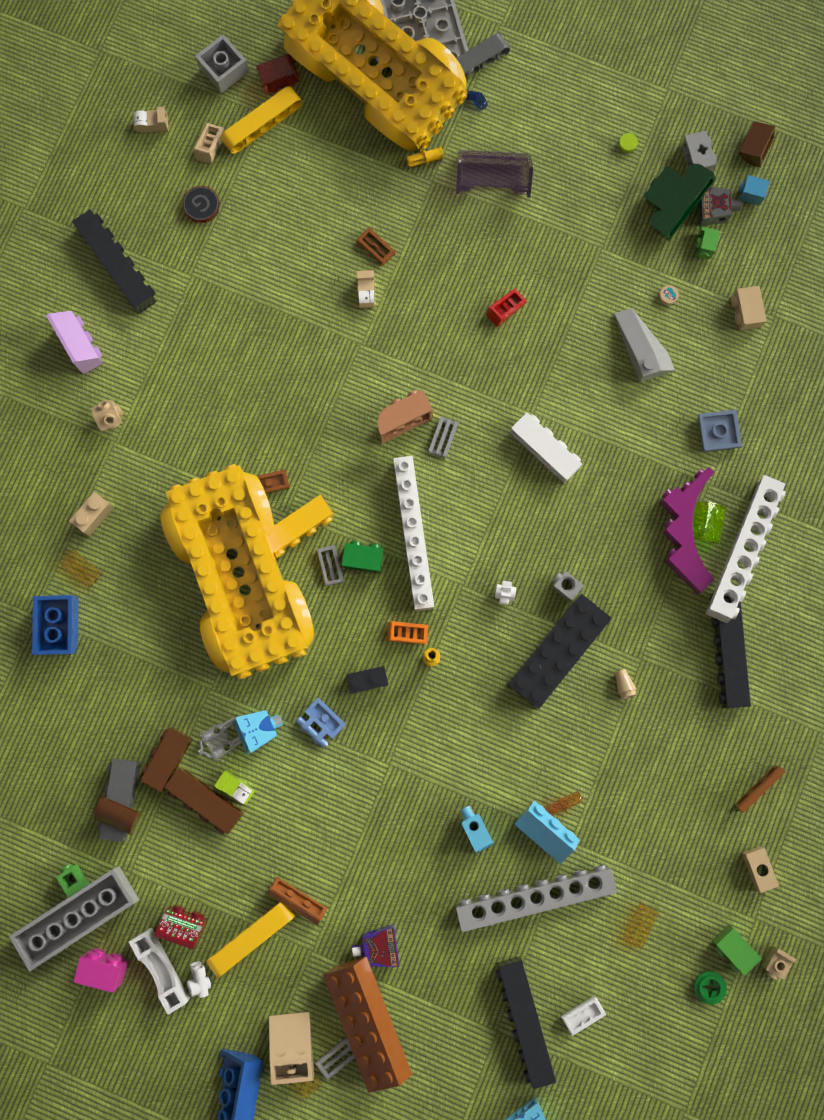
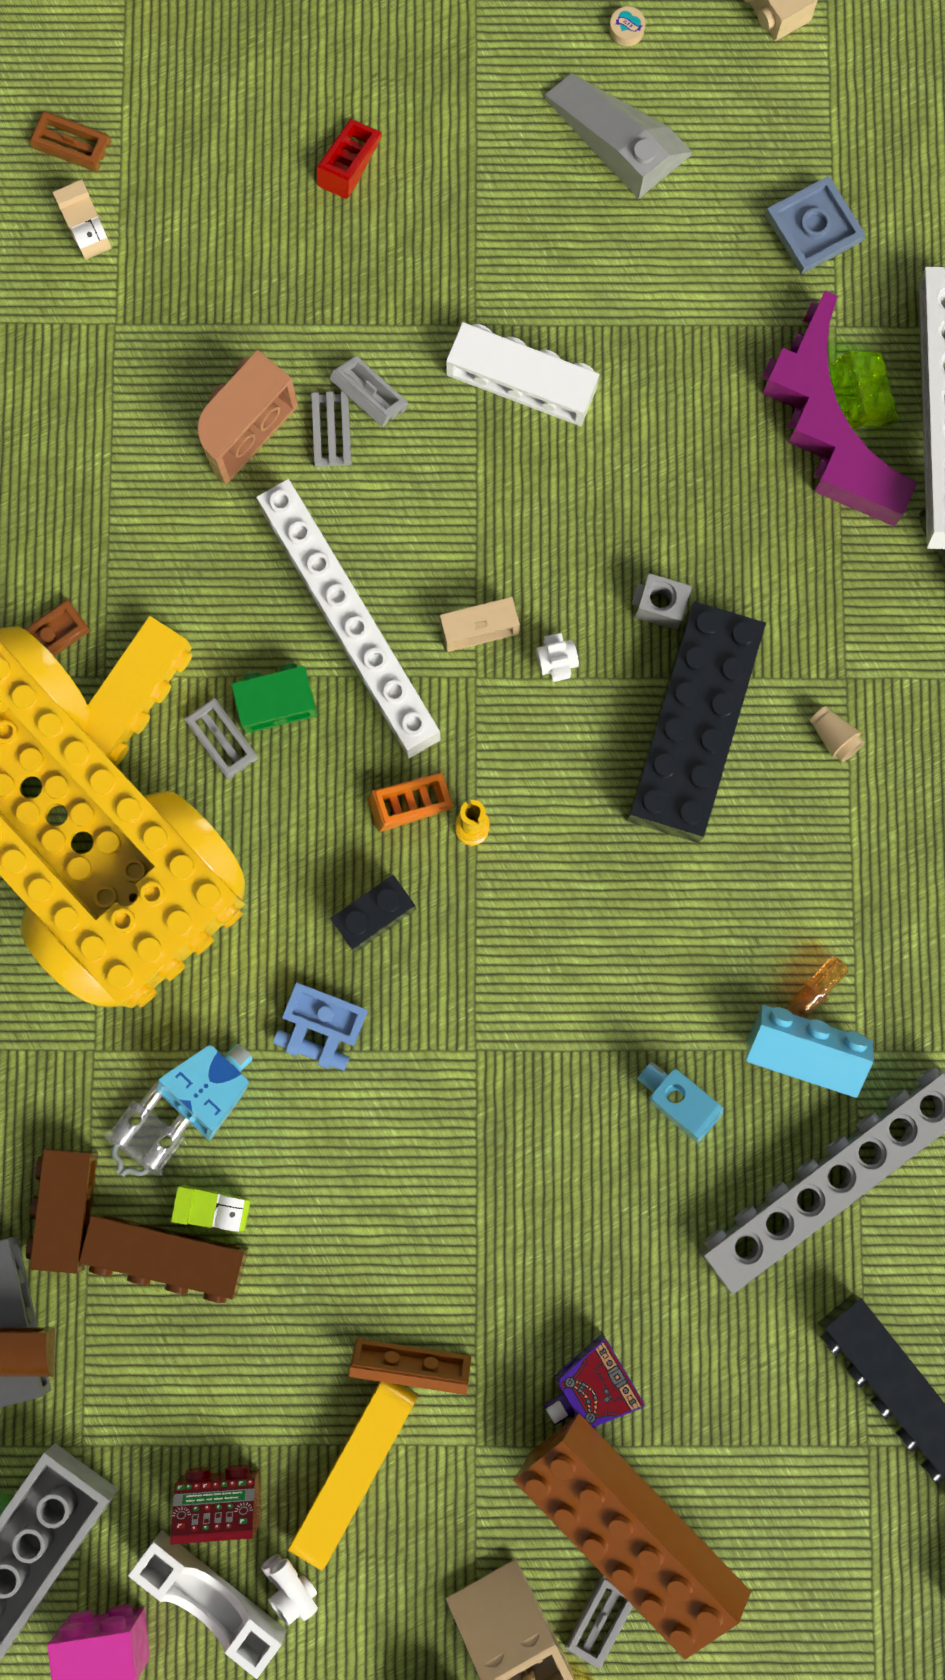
camera: 25 degrees left, 0 degrees up
(466, 426) = (366, 391): none -> light grey tile
(475, 561) = (479, 624): none -> tan piece

